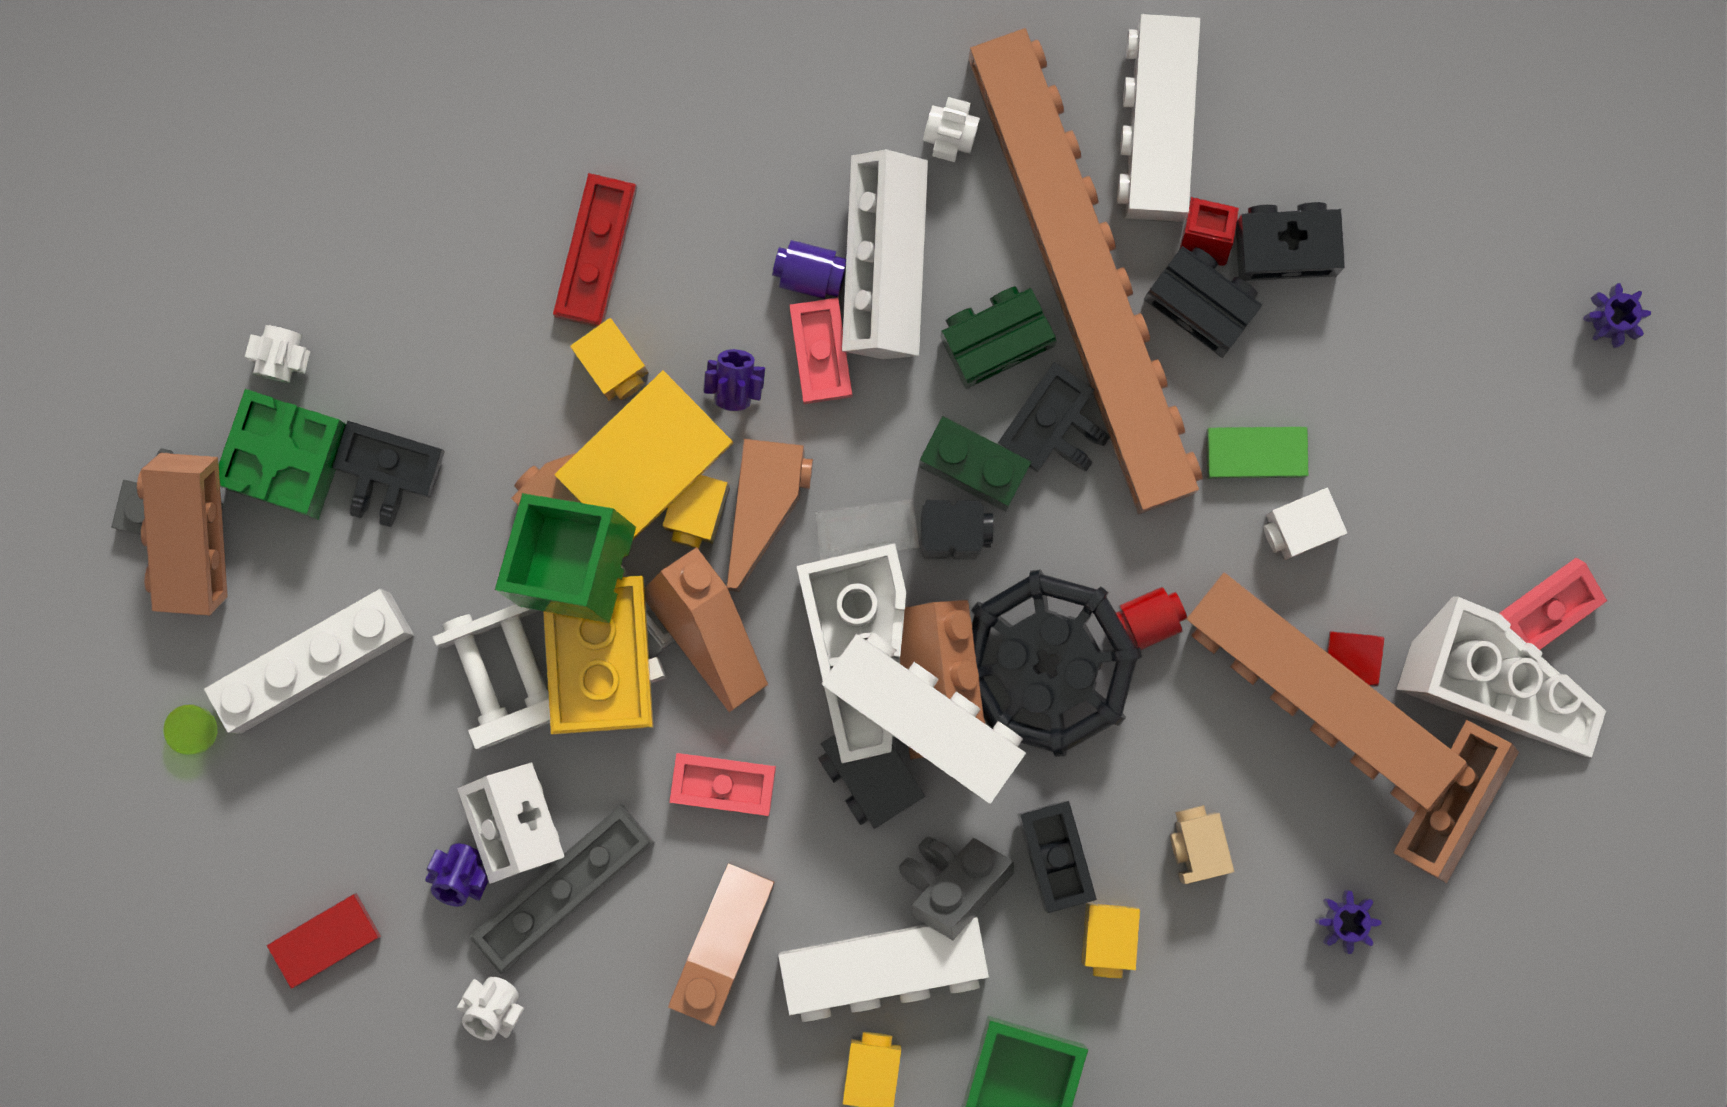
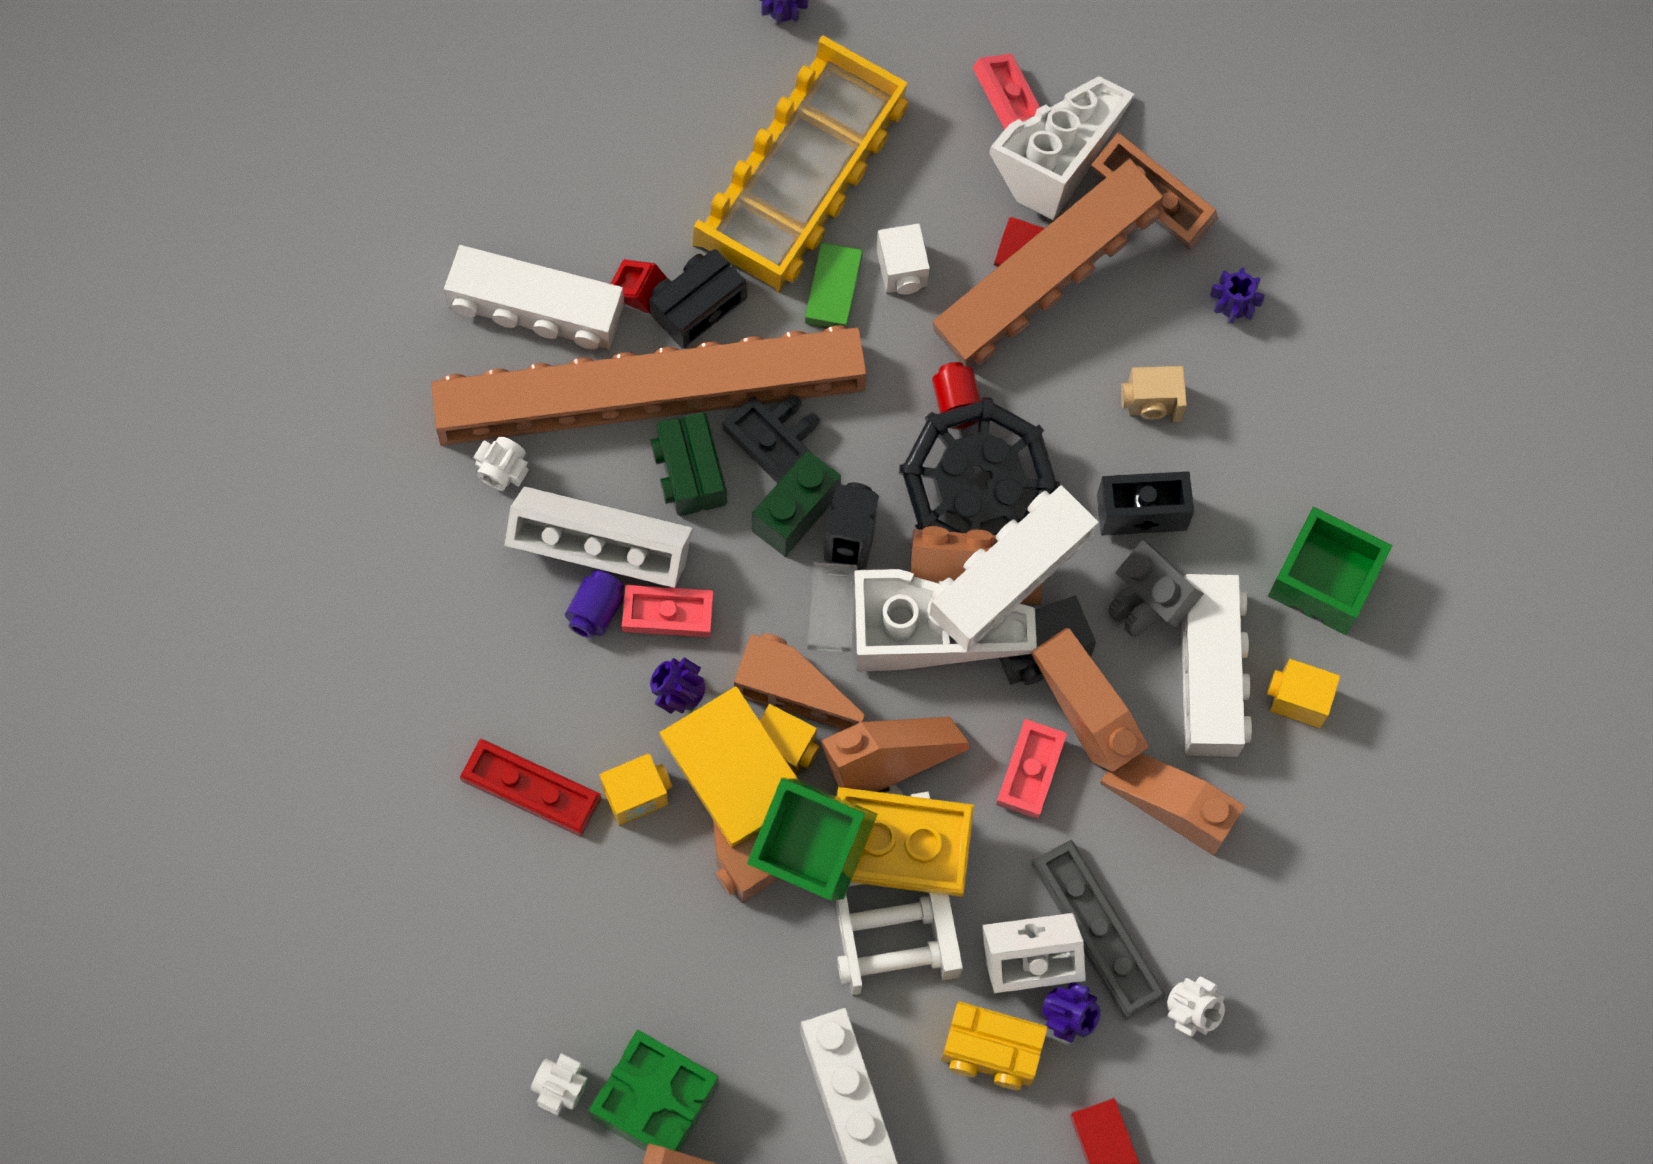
camera: 85 degrees left, 15 degrees down
(389, 461) = (681, 1003): black hinge -> none
(406, 798) = (993, 1045): none -> yellow brick
(800, 832) = (1089, 702): none -> nougat slope
(1110, 939) = (1221, 478): yellow brick -> none
(1266, 258) = (671, 201): black brick -> none
(1401, 386) = (803, 165): none -> window

